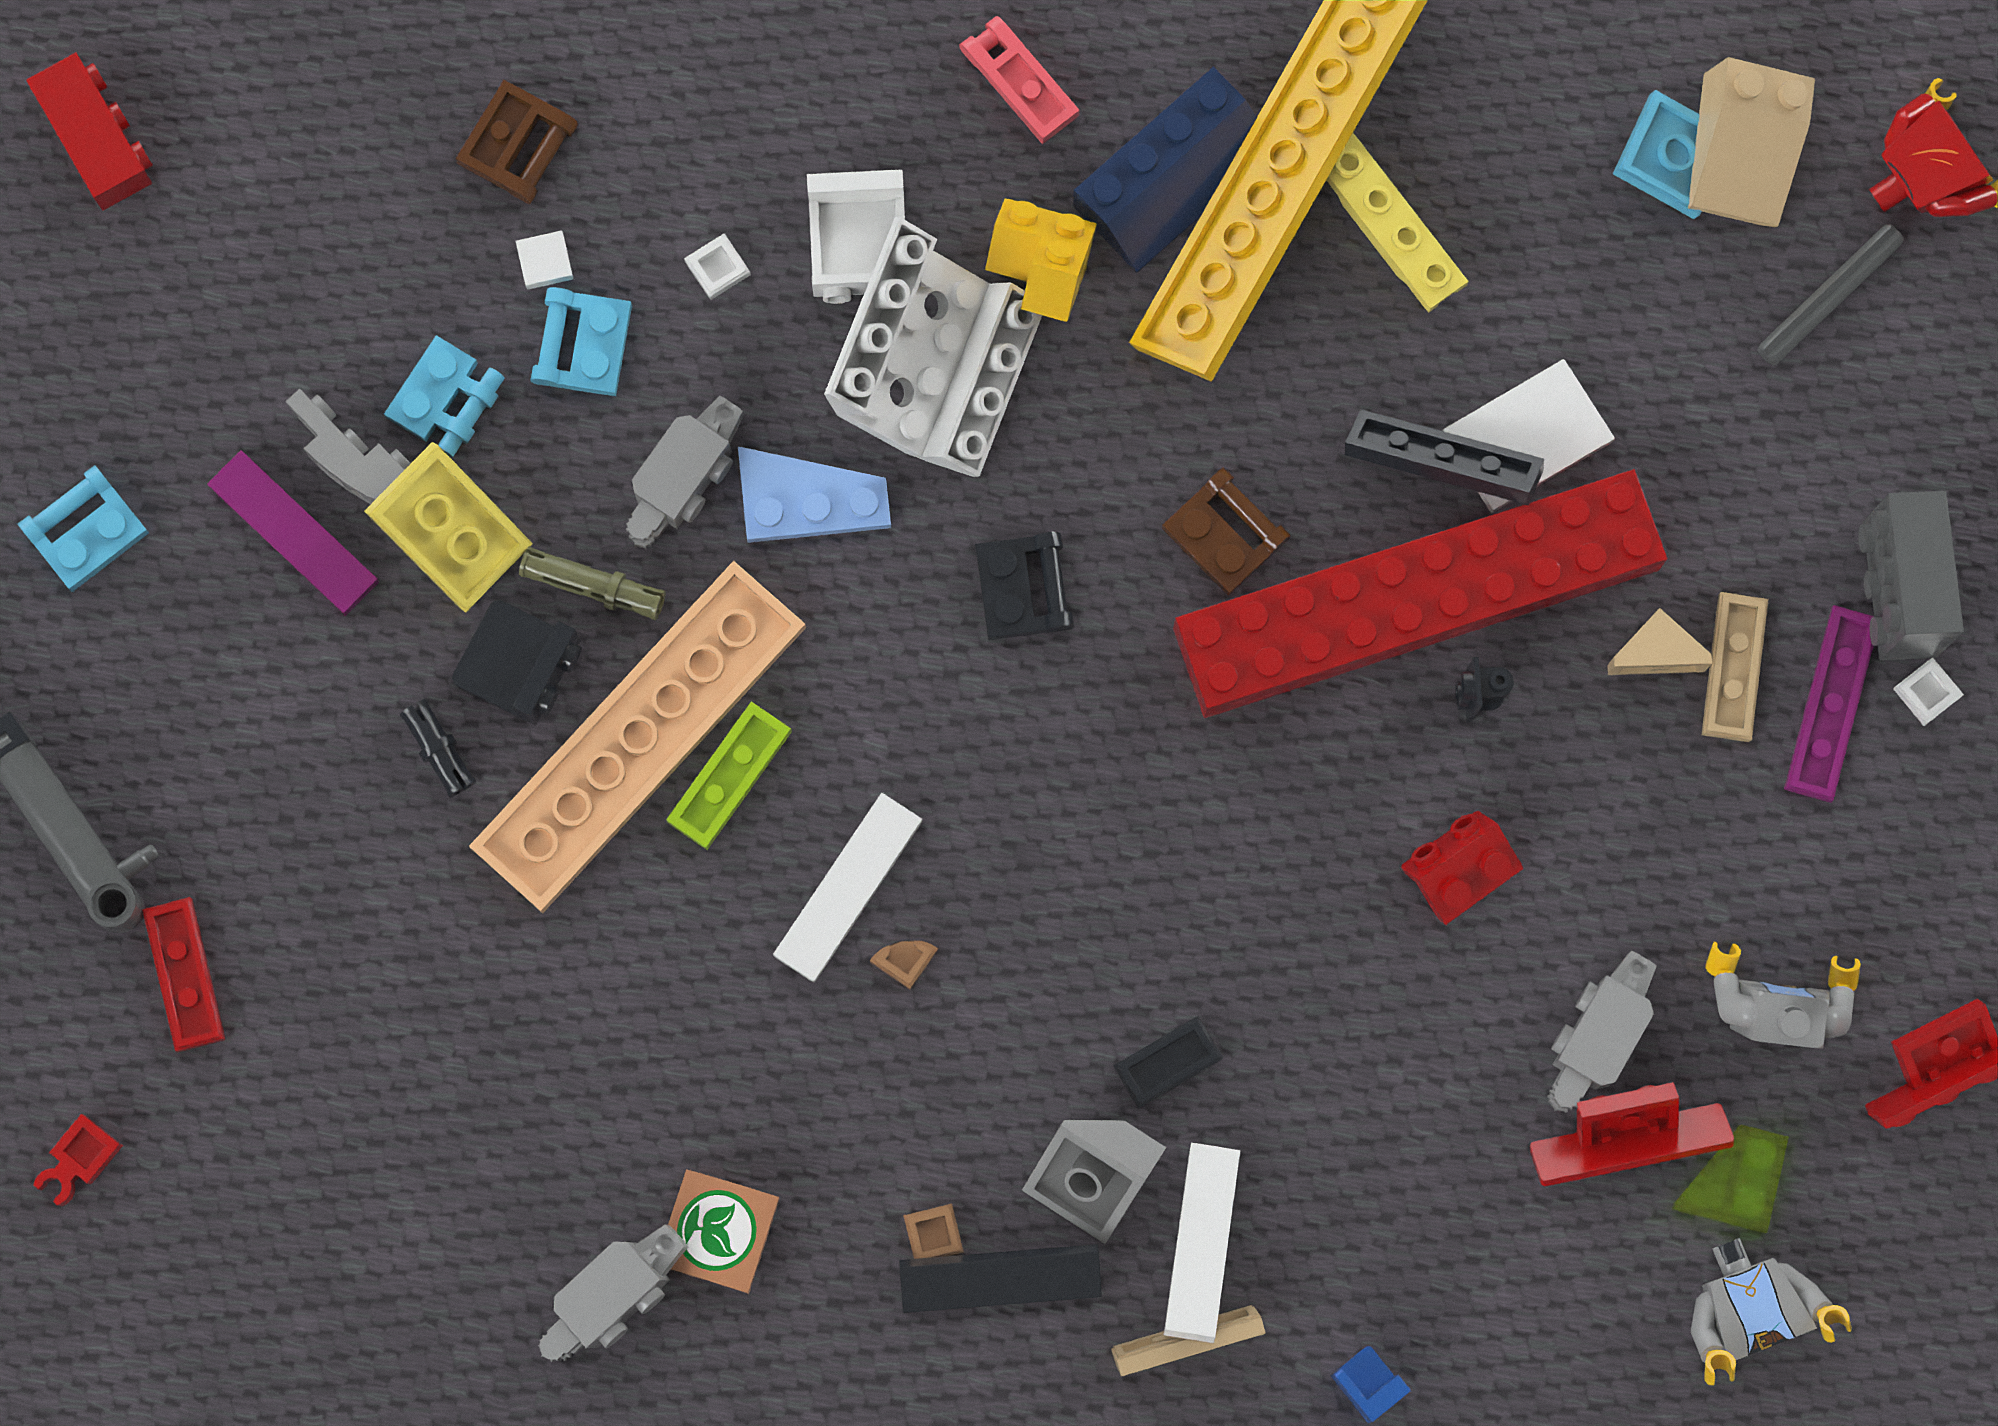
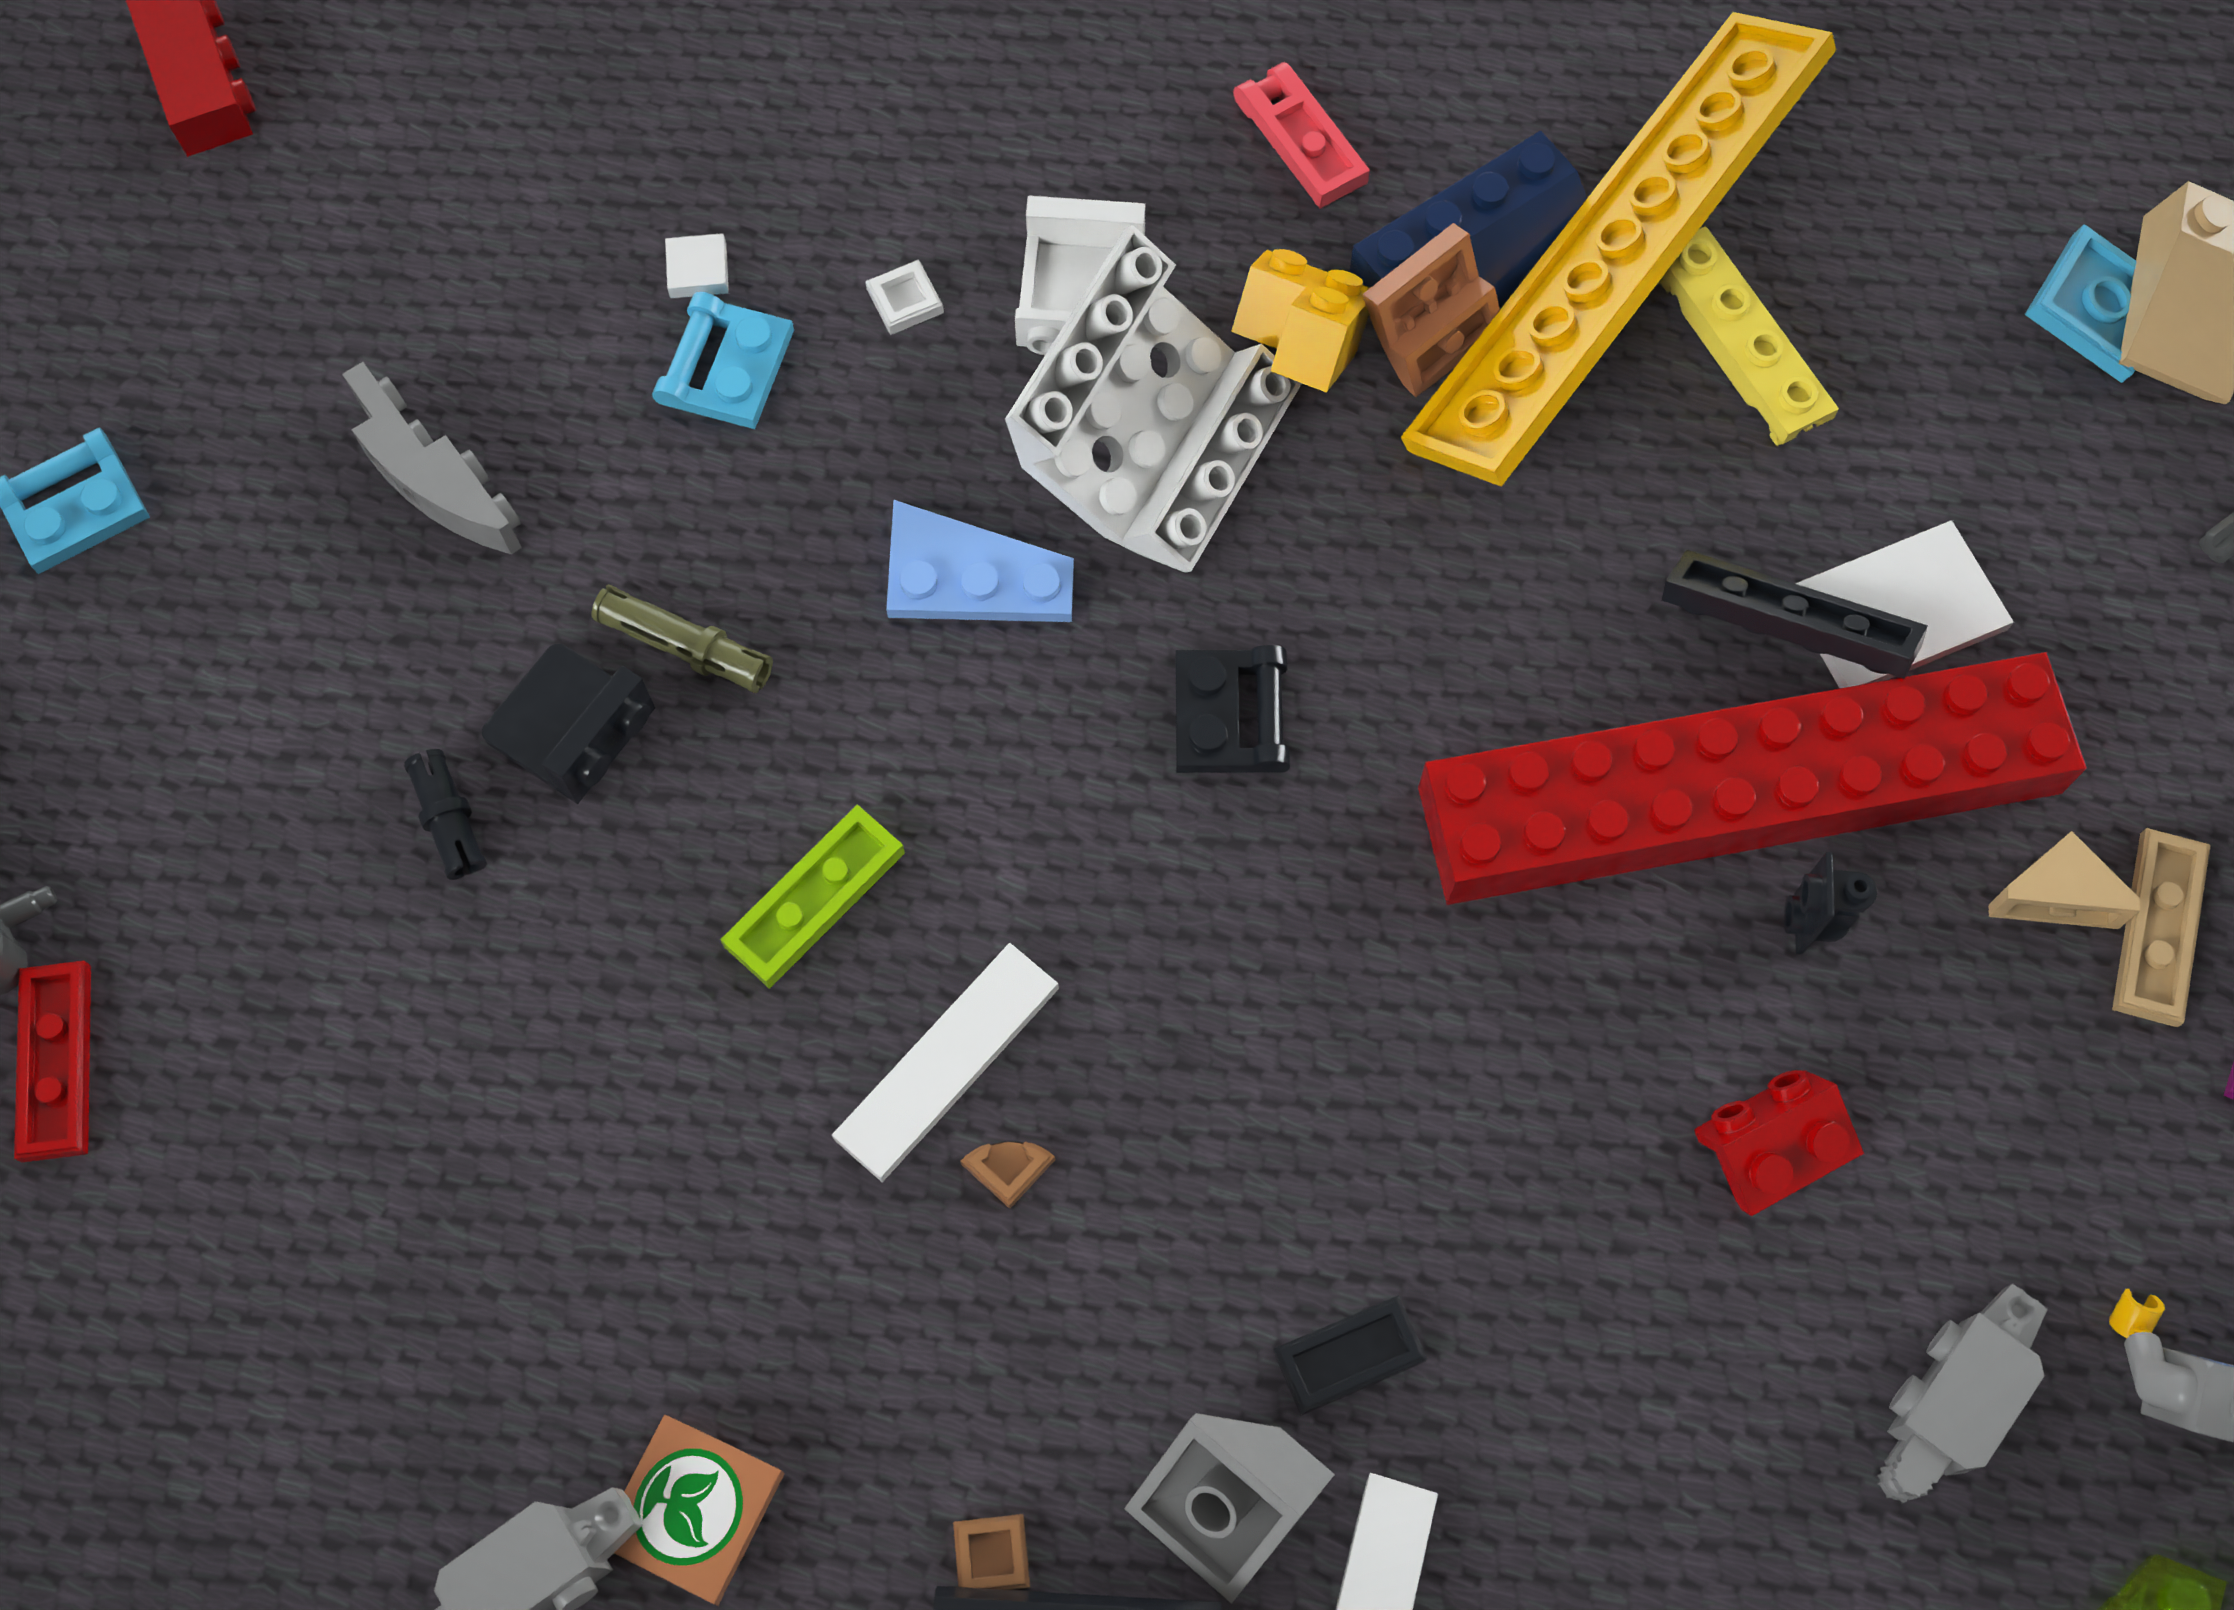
camera: 10 degrees right, 10 degrees down
(293, 532) = (325, 537): magenta tile -> none
(432, 389) = (533, 391): medium azure plate -> none
(448, 527) = (509, 541): light yellow tile -> none
(502, 135) = (676, 121): reddish brown plate -> none
(637, 737) = (700, 835): light nougat plate -> none
(681, 469) = (817, 518): light grey hinge -> none
(1142, 235) = (1431, 309): none -> nougat slope
(1214, 542) = (1482, 686): reddish brown plate -> none
(1630, 1133) = (1999, 1545): red bracket -> none

